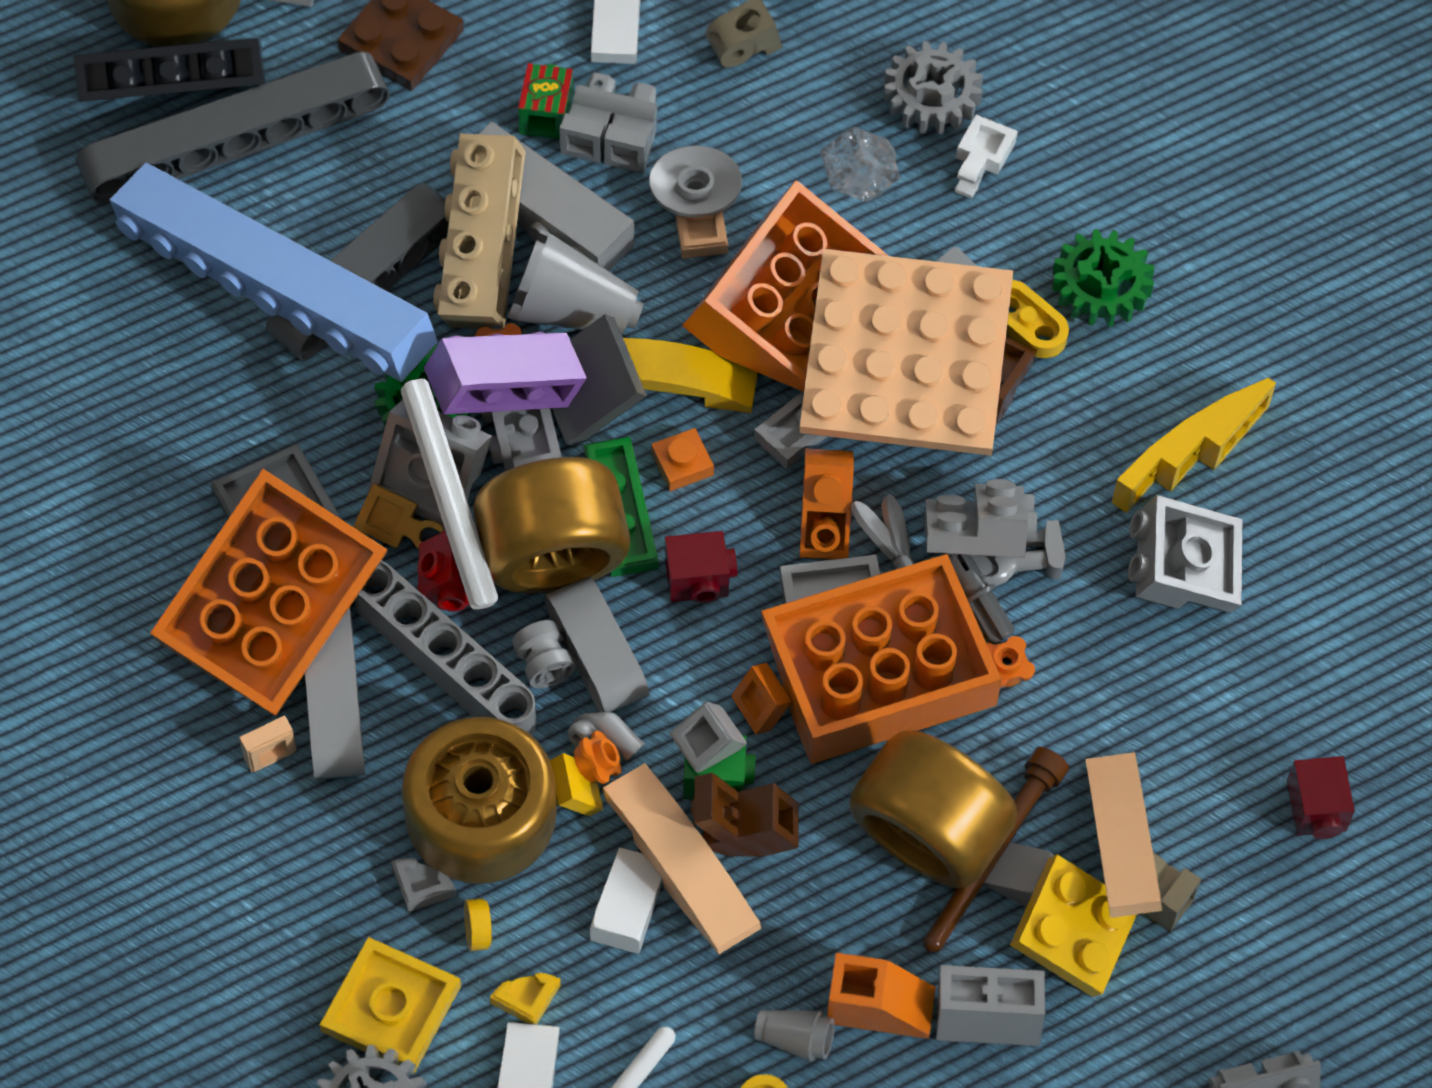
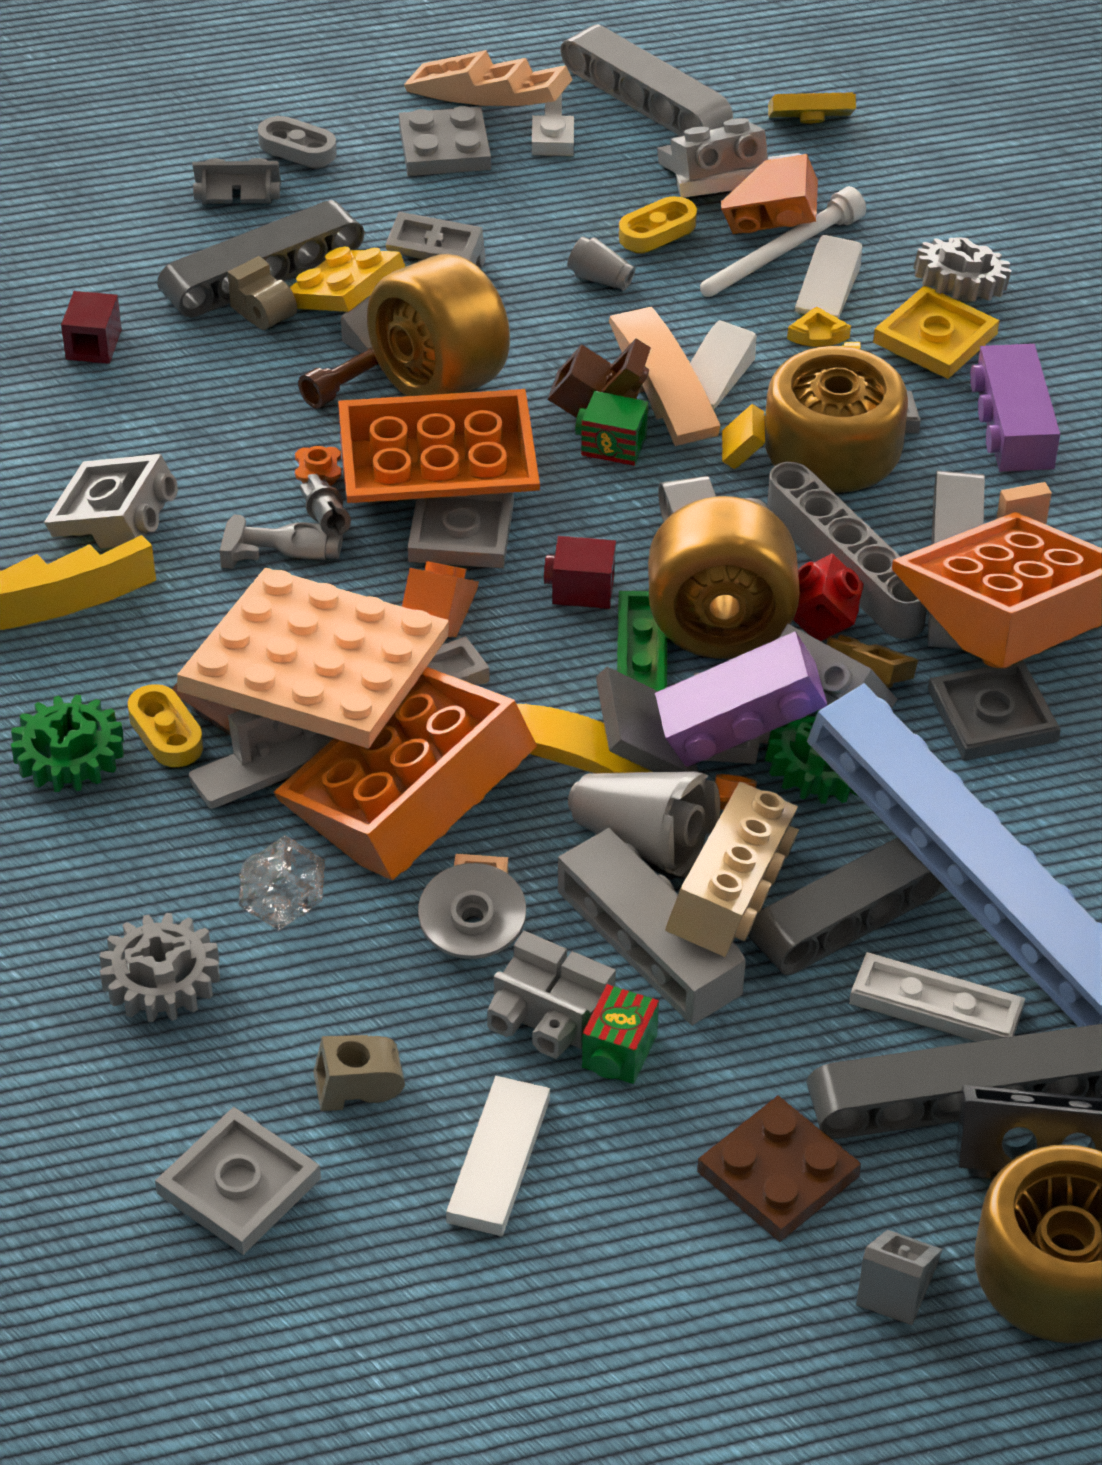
camera: 165 degrees left, 15 degrees down
(290, 893) = (1015, 407): none -> medium lavender brick
(295, 197) = (935, 1000): none -> white tile
(449, 494) = (823, 596): white axle -> none
(597, 758) = (719, 446): orange plate -> none
(611, 726) = (722, 479): light grey arm -> none
(682, 459) = (568, 675): orange plate -> none
(707, 736) = (616, 414): light grey slope -> none
(761, 698) = (554, 466): orange plate -> none
(879, 997) = (532, 261): orange slope -> none
(888, 536) = (385, 563): light grey piece -> none
(982, 148) = (134, 893): white plate -> none
(991, 525) = (300, 534): light grey plate -> none
(1123, 835) = (277, 314): light nougat slope -> none
(1181, 953) = (288, 245): none -> dark grey beam

